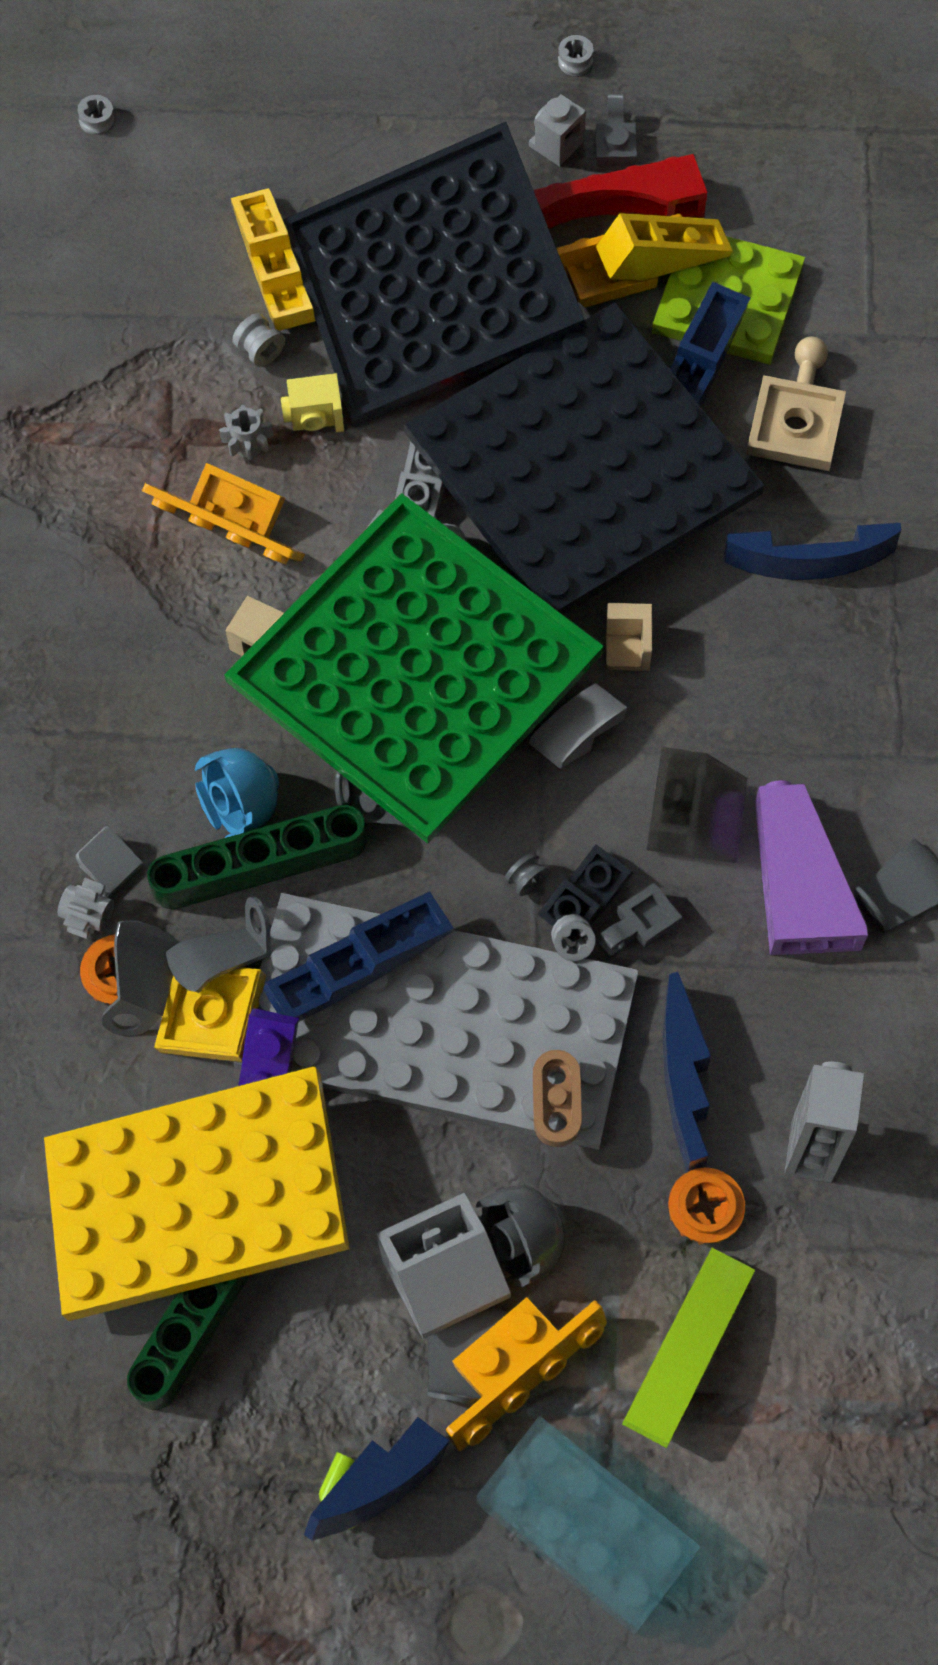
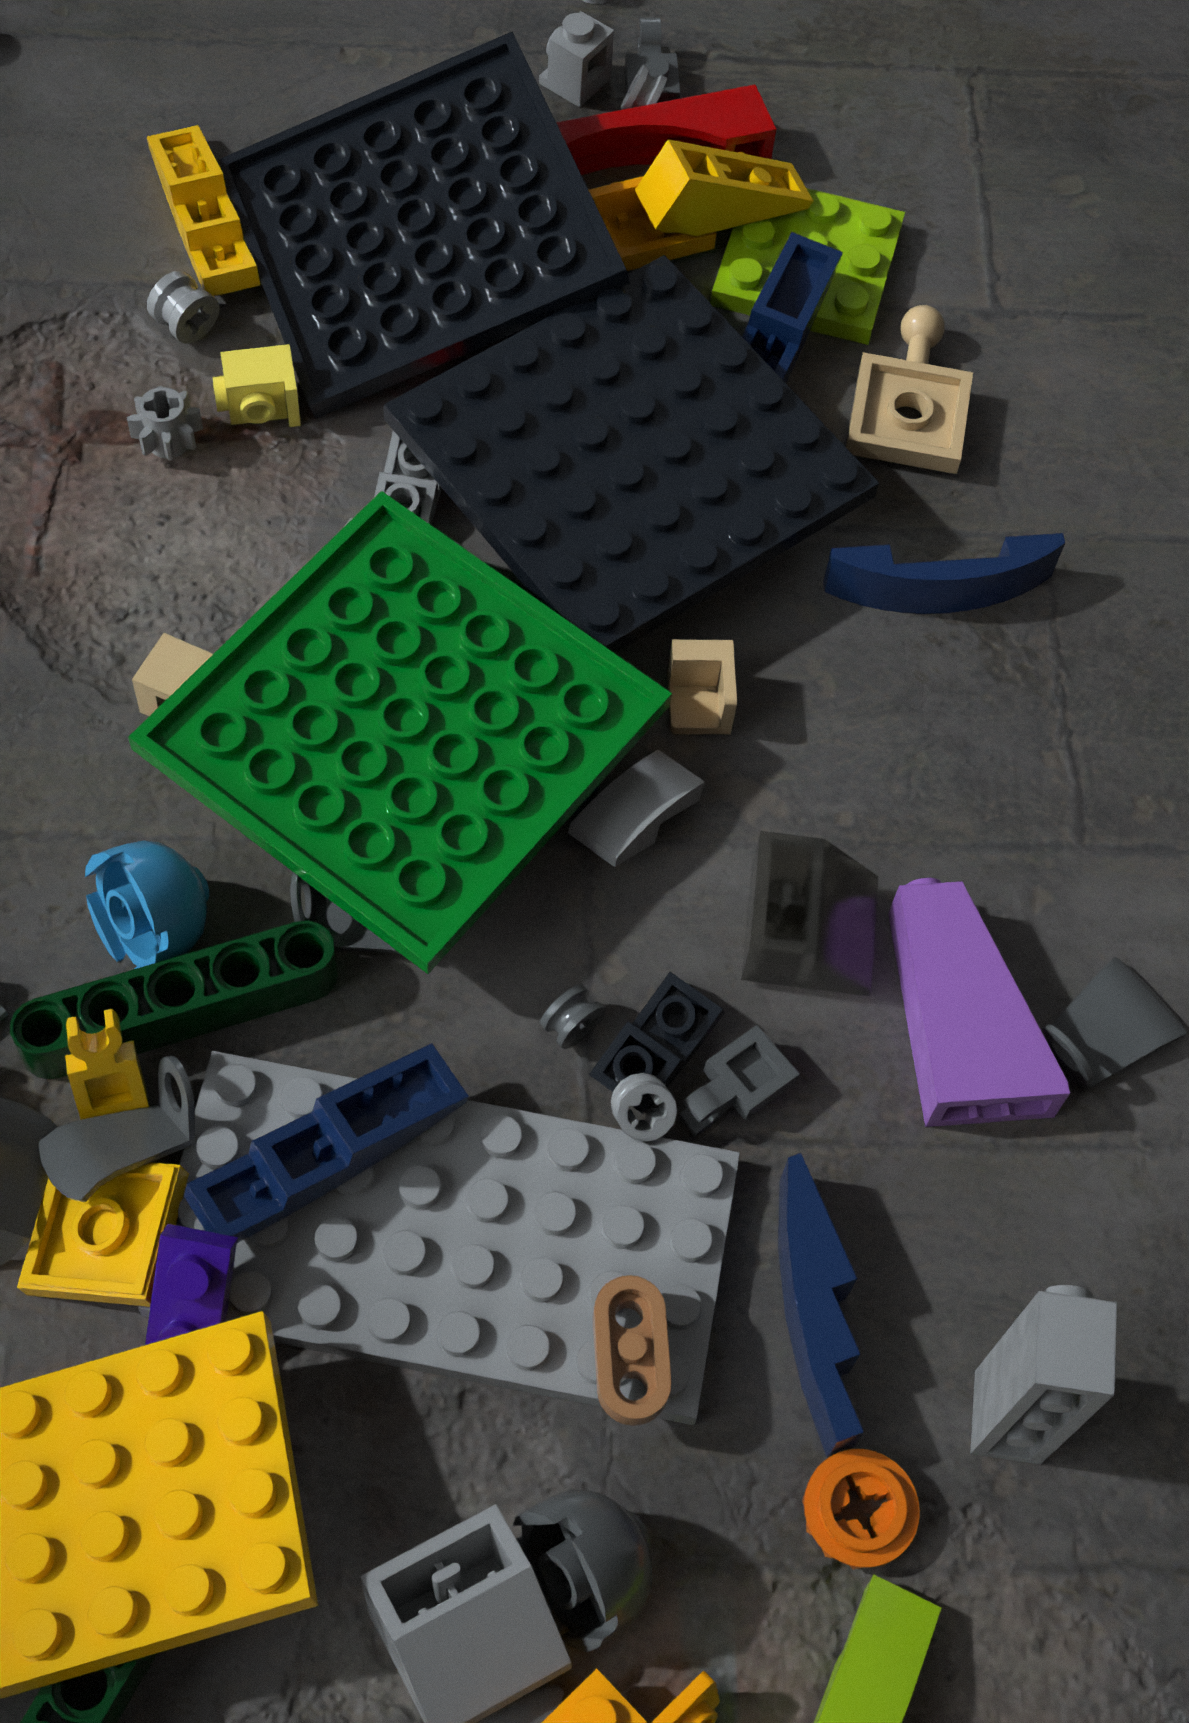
camera: 10 degrees left, 5 degrees down
(209, 904) = (104, 1070): none -> yellow plate
(234, 505) = (147, 515): light orange bracket -> none
(607, 158) = (644, 89): none -> light grey bush

